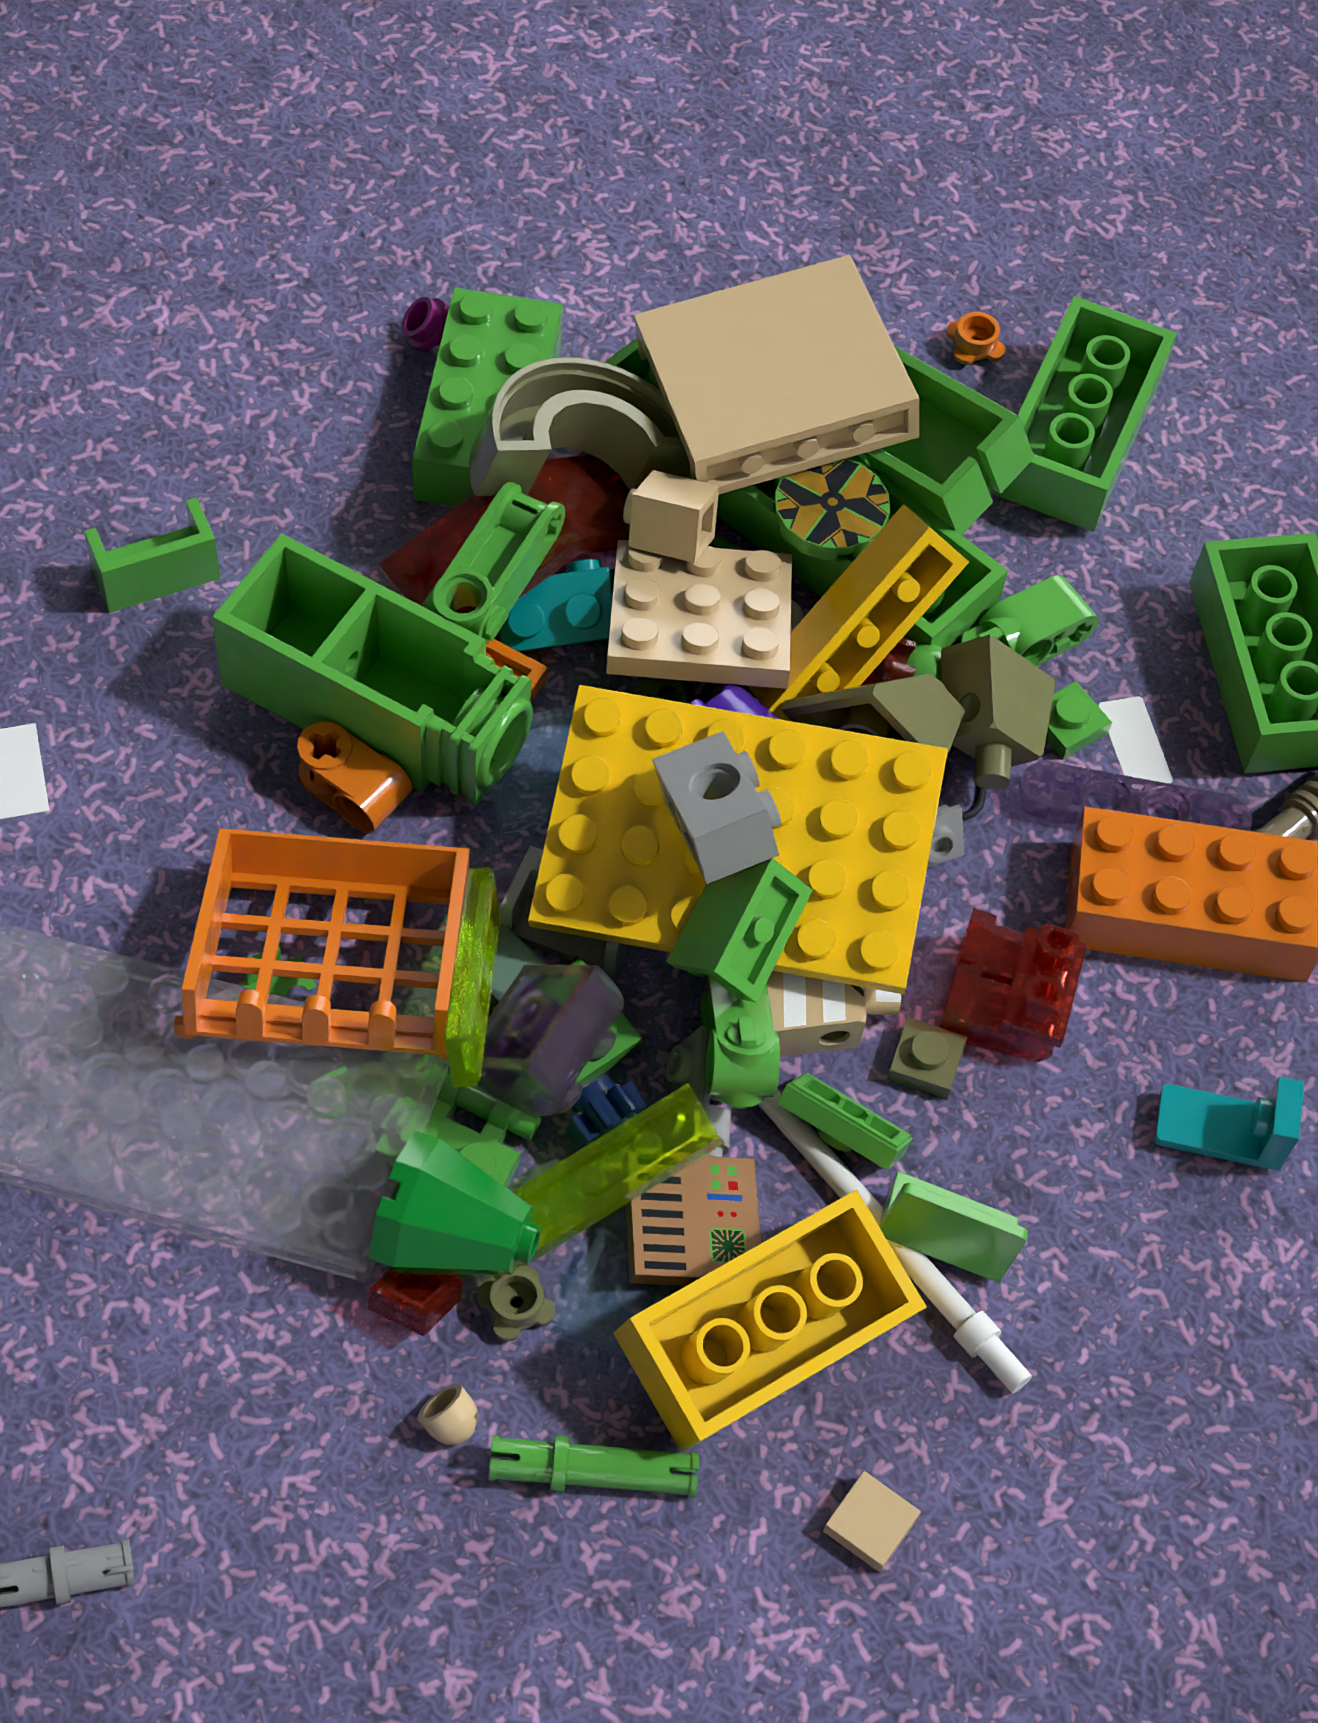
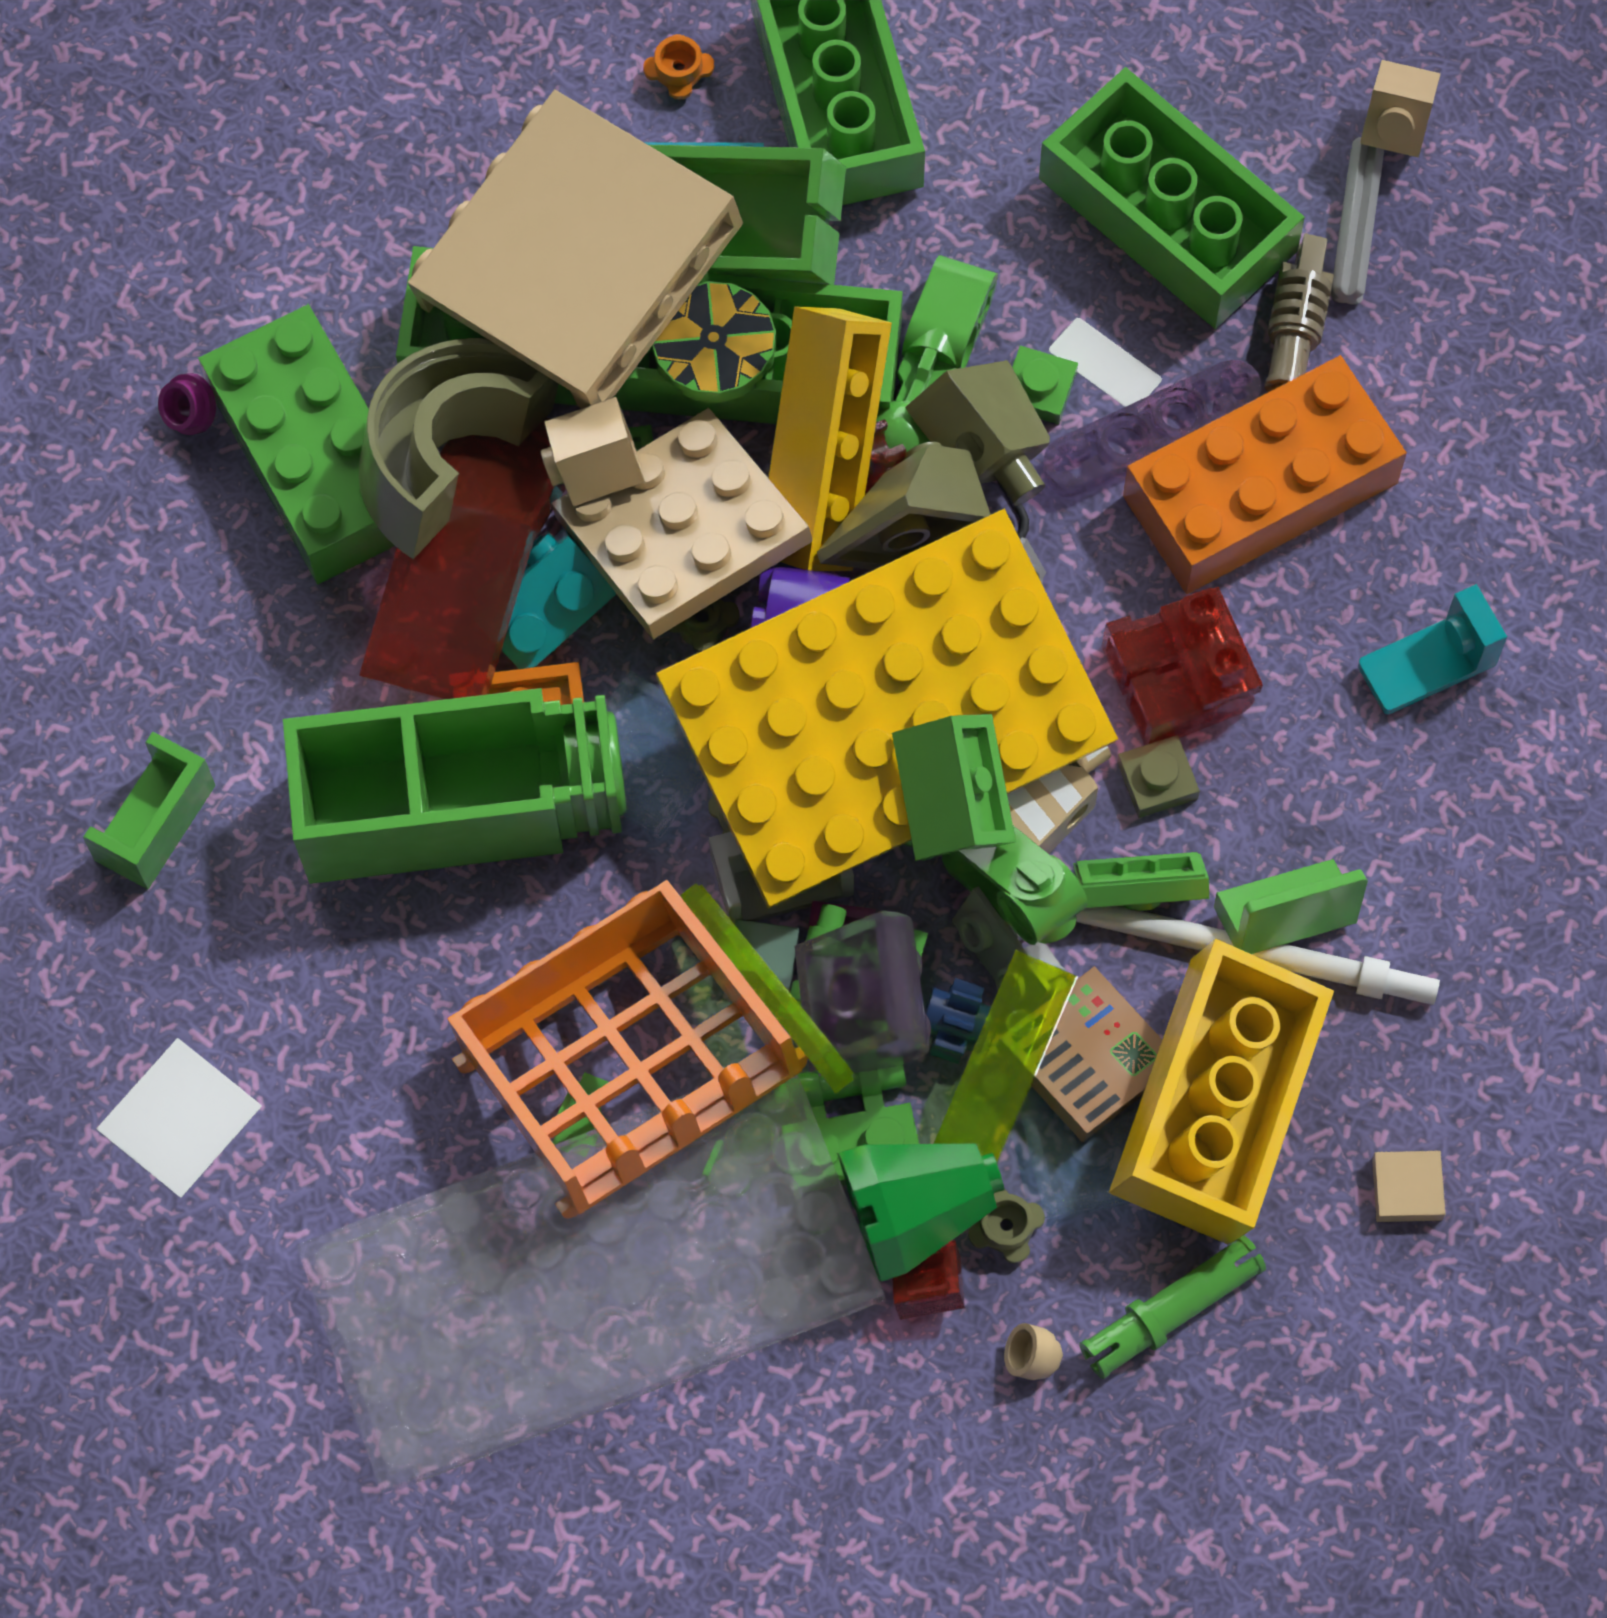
camera: 30 degrees left, 10 degrees up
(350, 776) = (506, 886): orange piece -> none
(497, 561) = (483, 608): bright green piece -> none
(718, 807) = (897, 727): light grey brick -> none

